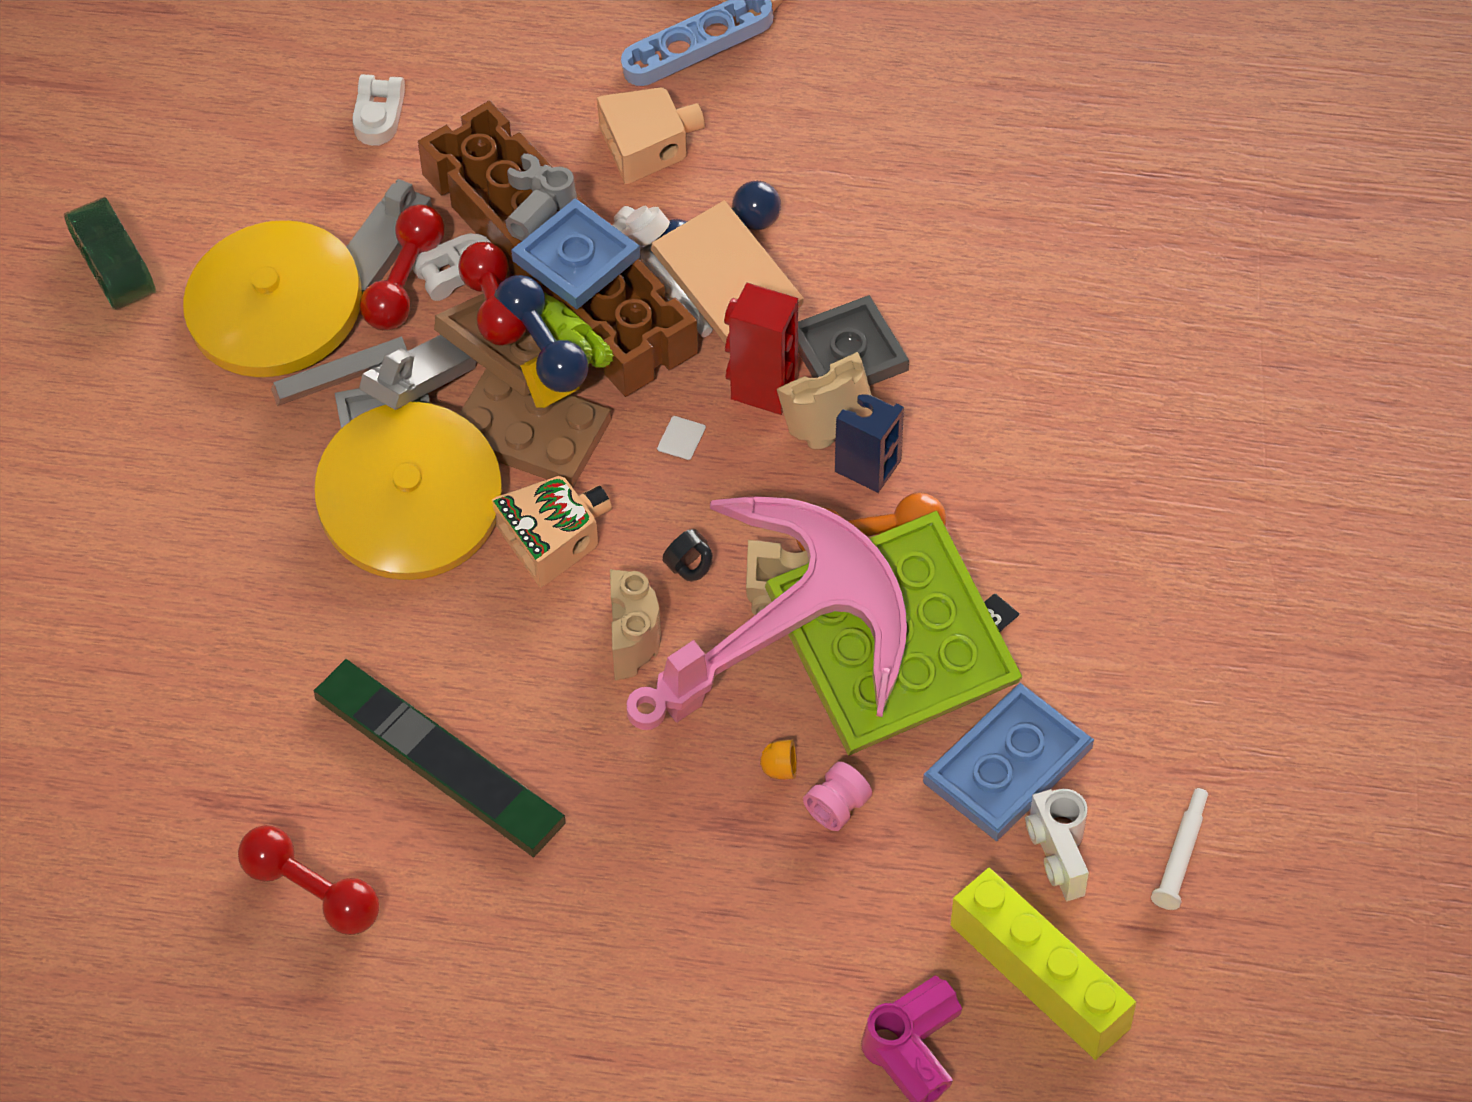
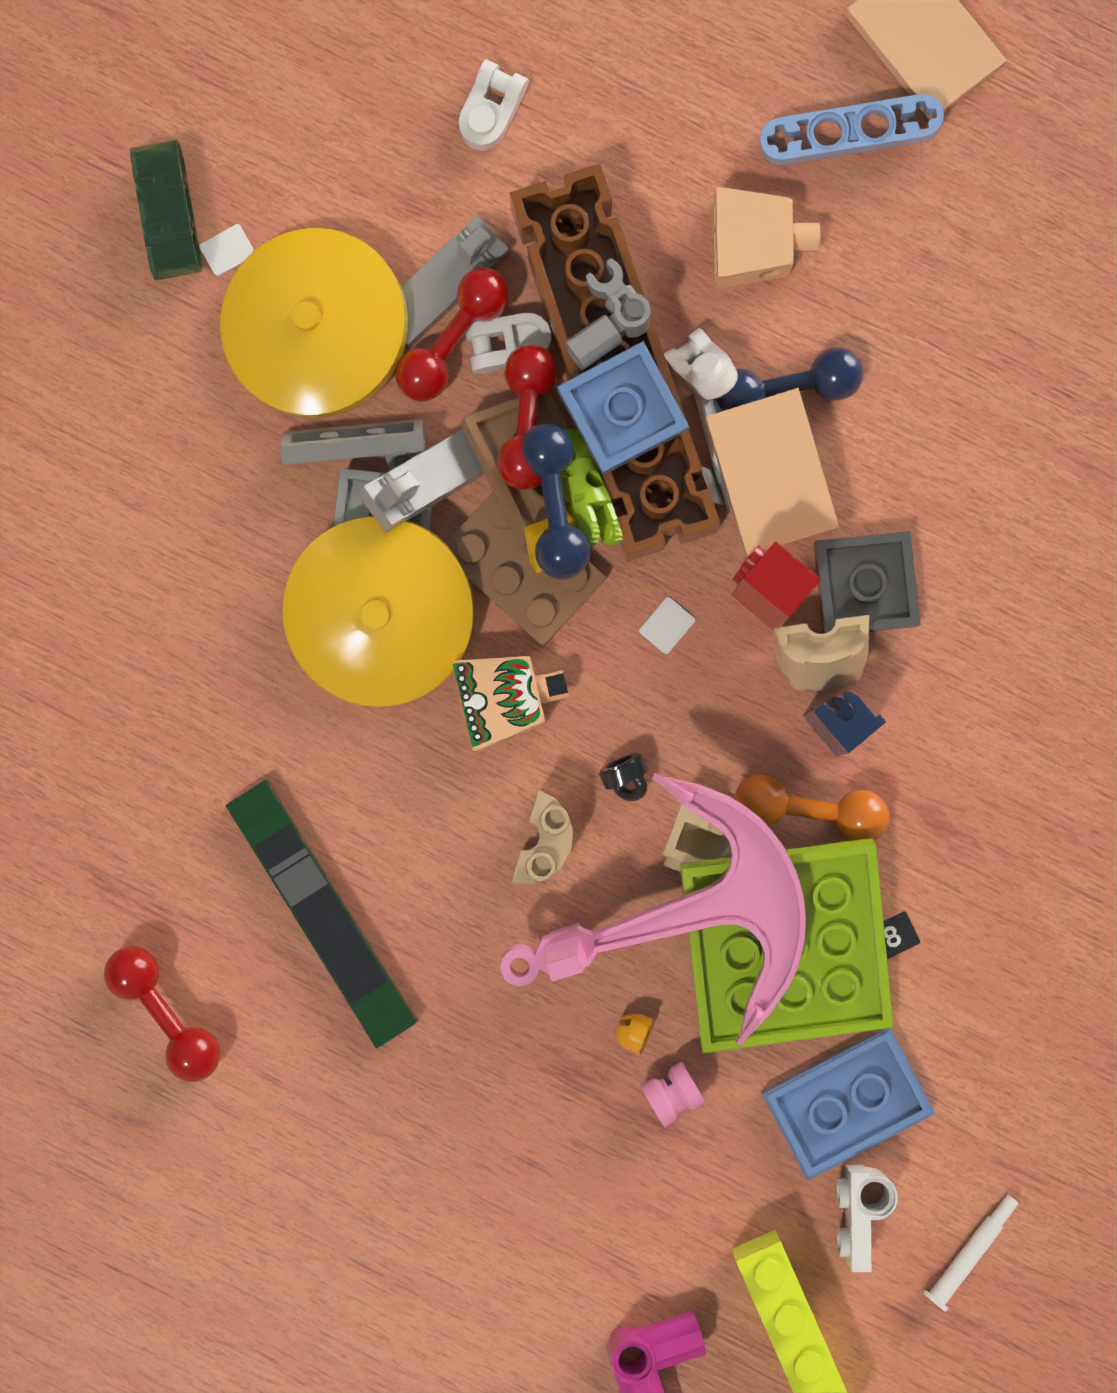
camera: 25 degrees right, 30 degrees up
(173, 274) = (227, 249): none -> white sticker

